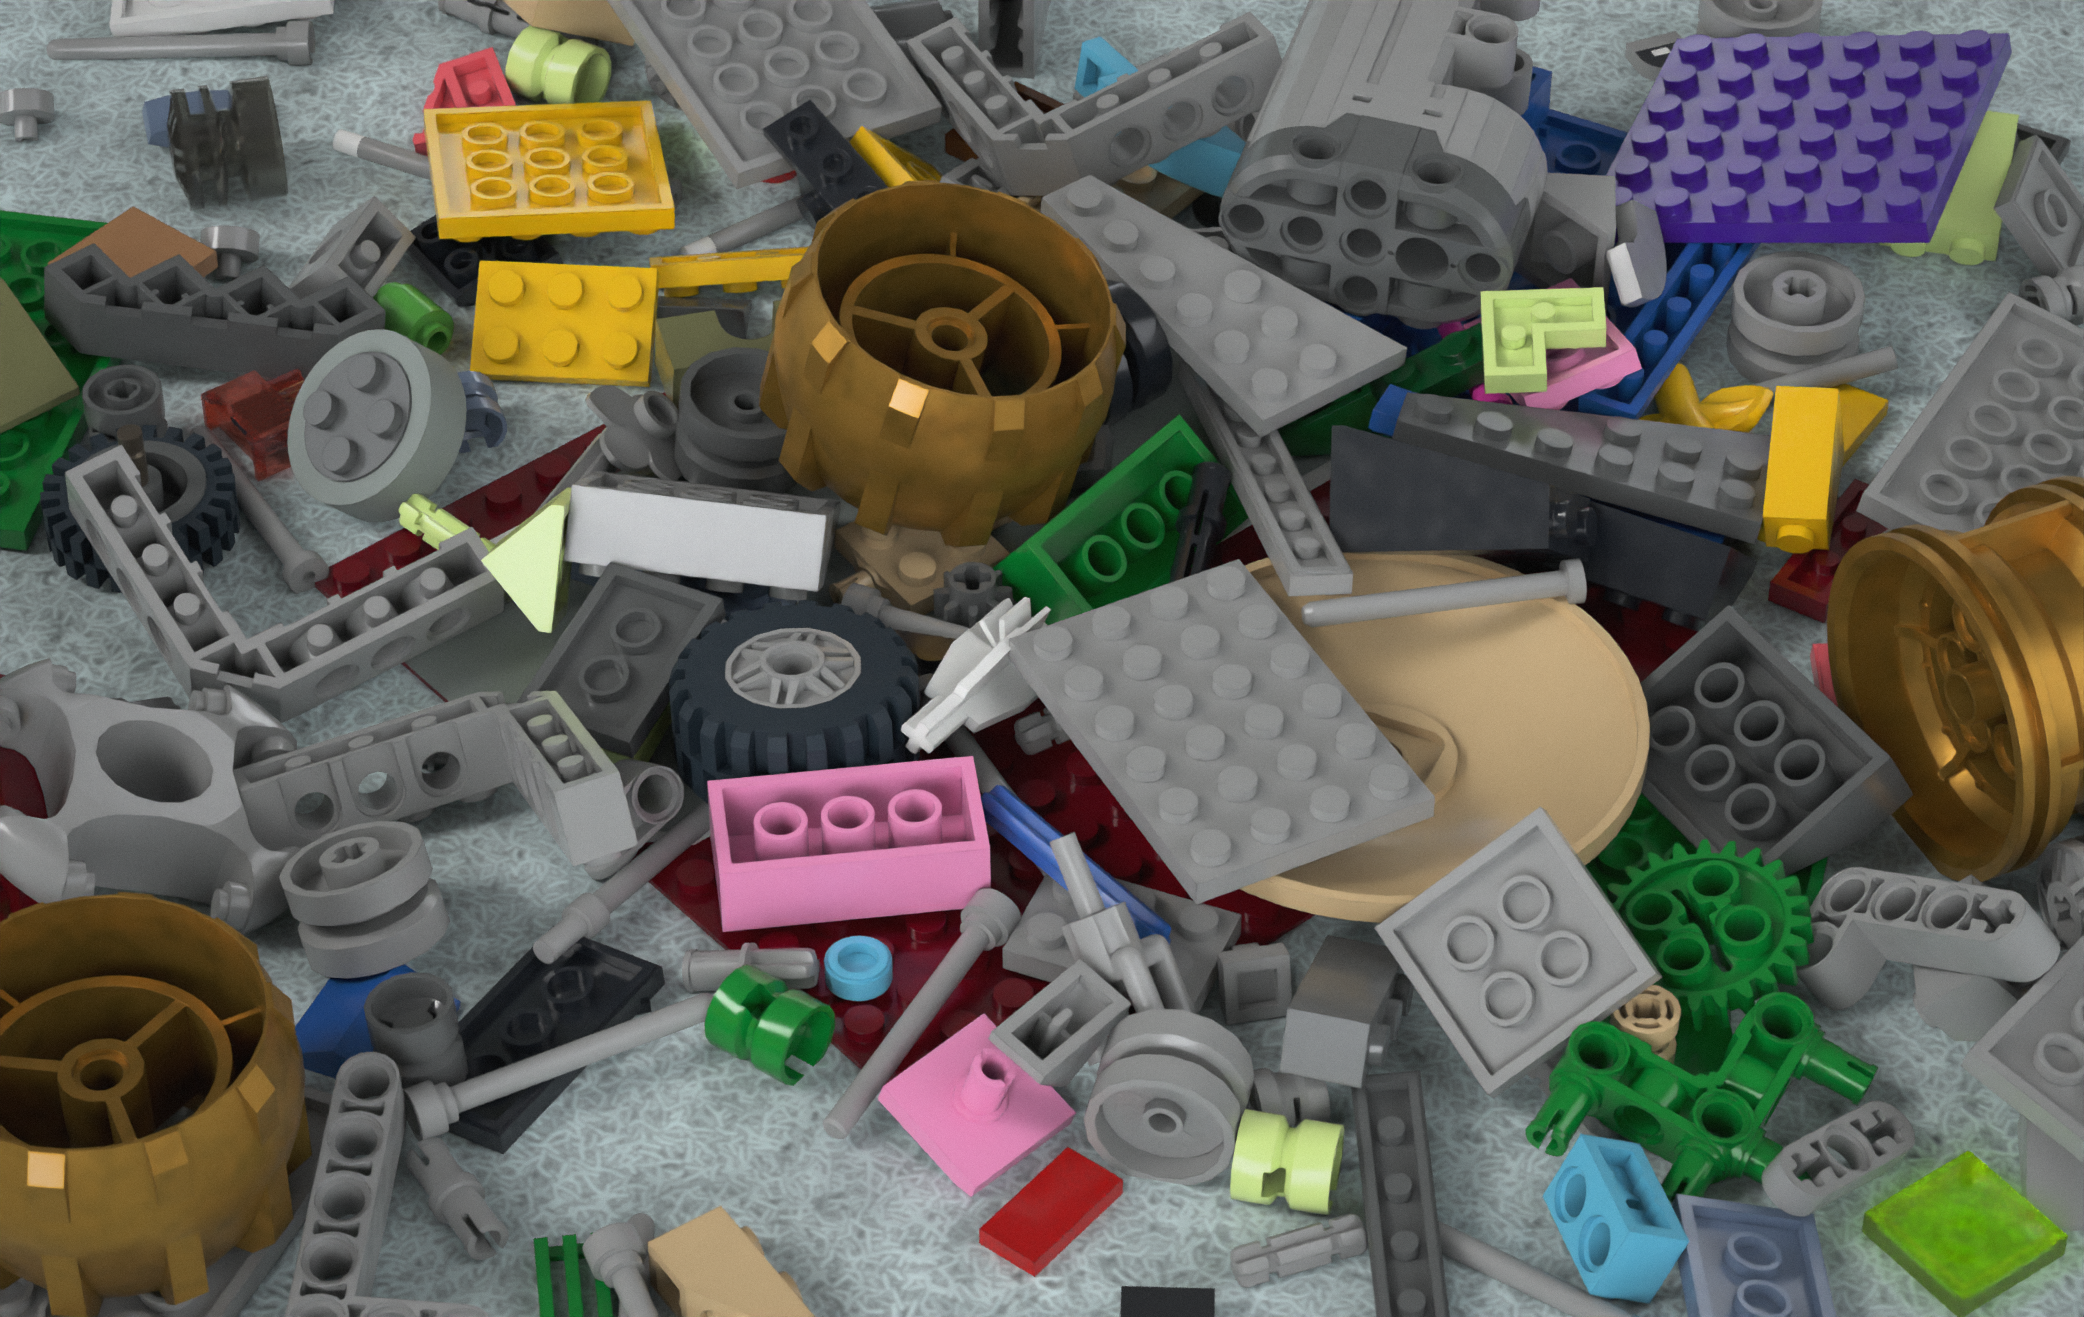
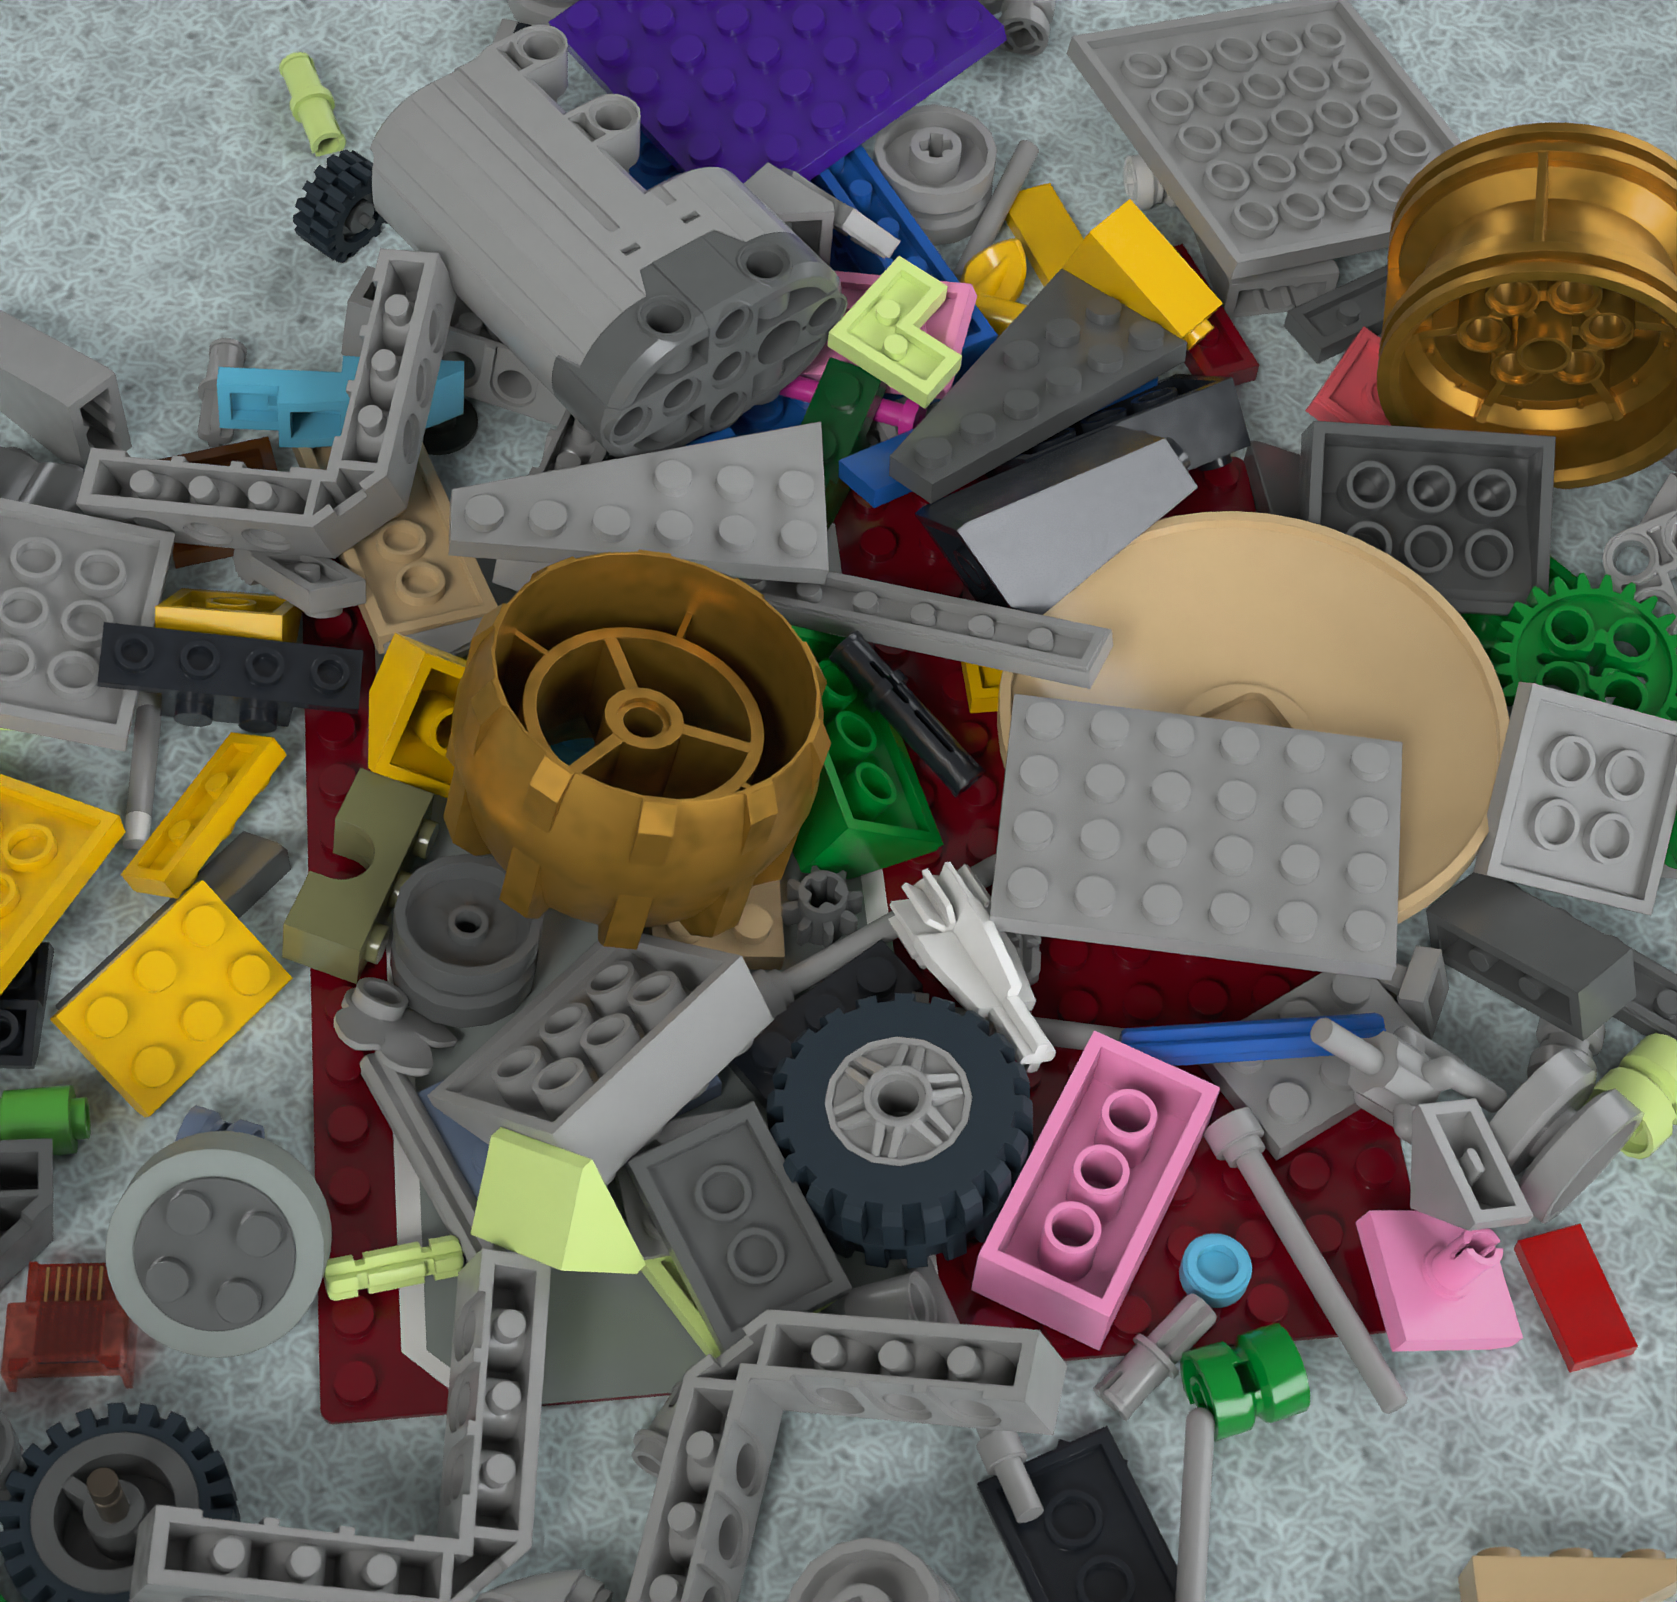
camera: 60 degrees left, 15 degrees up
(300, 566) = (207, 1415): light grey bar -> none
(1566, 582) = (1193, 508): light grey bar -> none

